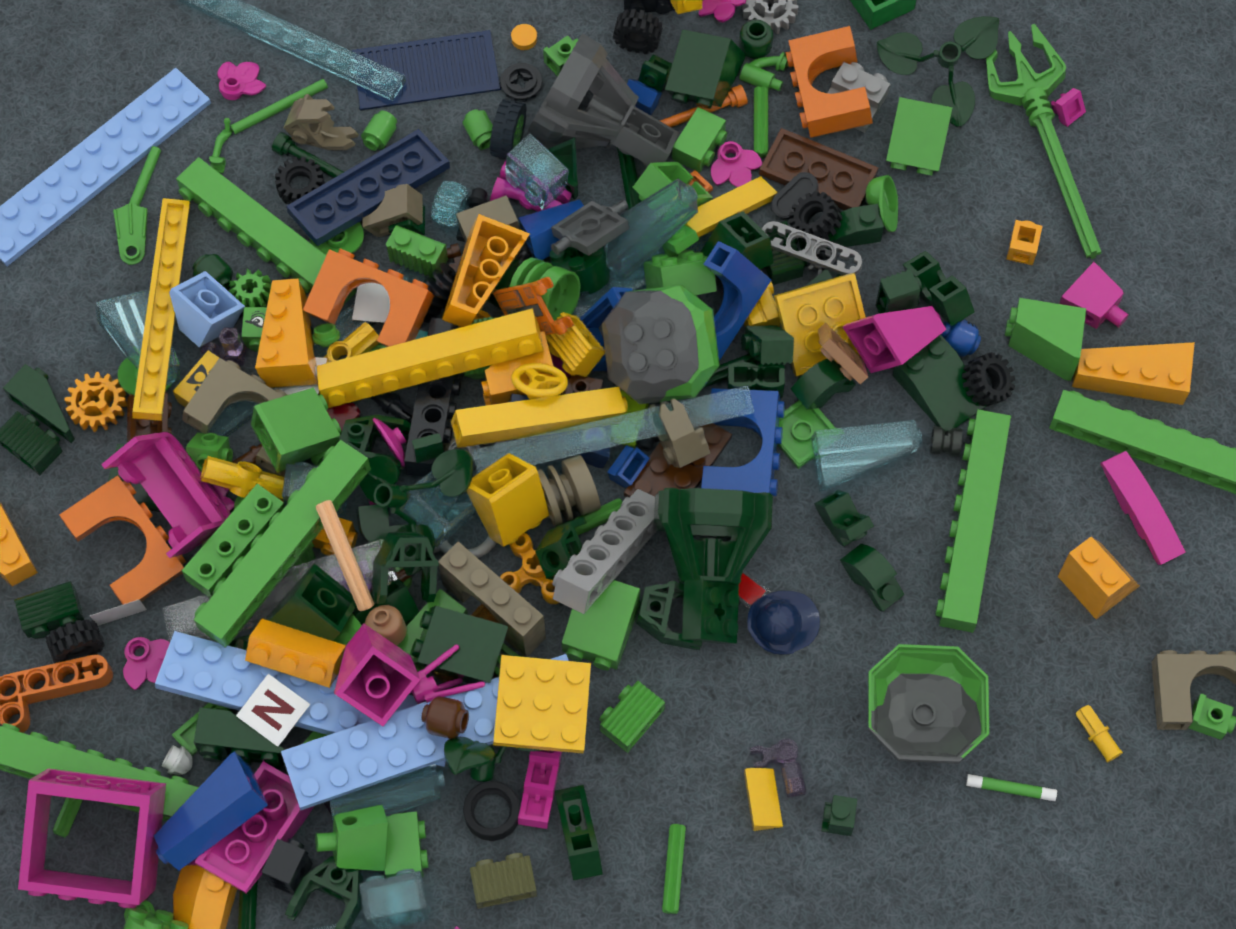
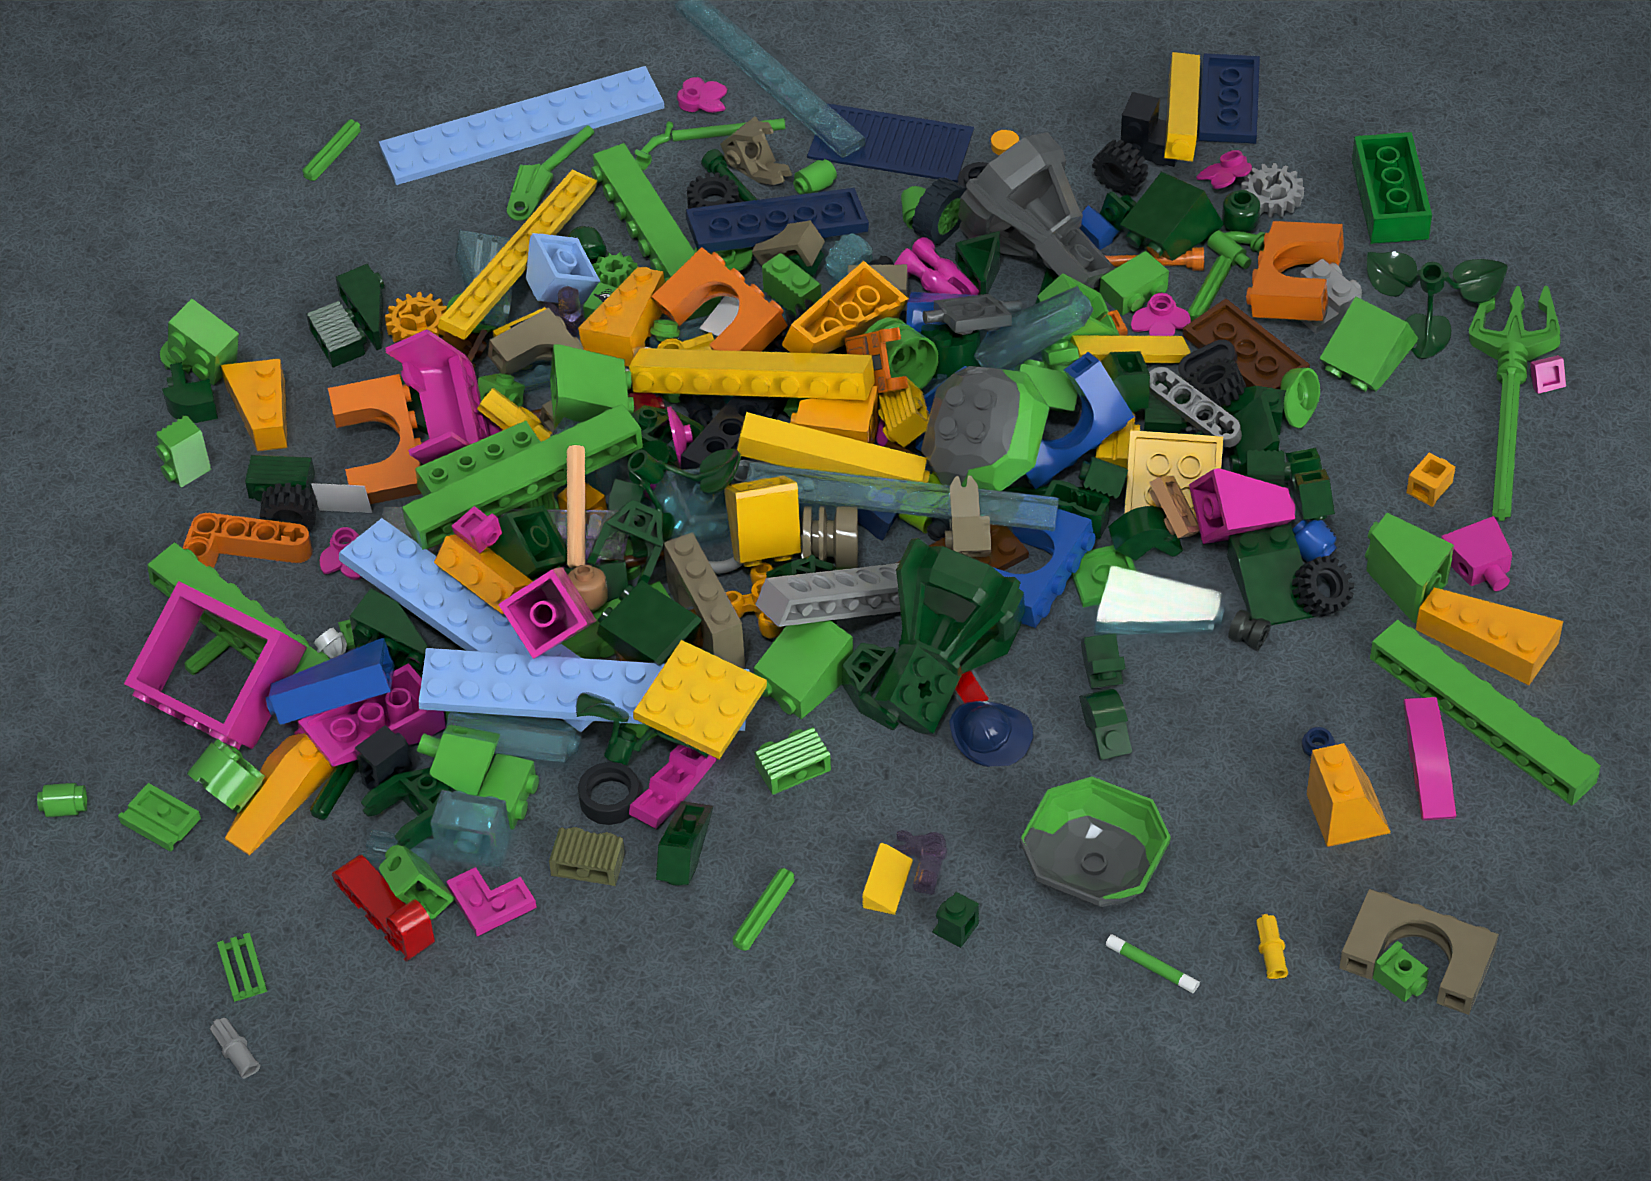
camera: 25 degrees right, 15 degrees down
(273, 710) = (438, 614): white sticker -> none
(274, 618) = (477, 529): none -> dark pink bracket
(427, 447) = (705, 444): dark green tile -> none
(427, 688) = (596, 649): dark pink plant -> none
(445, 717) = (597, 671): reddish brown head -> none
(536, 172) = (944, 249): clear light blue brick -> none
(540, 385) = (846, 422): yellow piece -> none
(627, 466) = (896, 545): blue piece -> none
(877, 259) = (1257, 433): none -> dark green slope
(974, 522) = (1240, 709): bright green brick -> none
(1051, 519) = (1314, 735): none -> dark blue plate

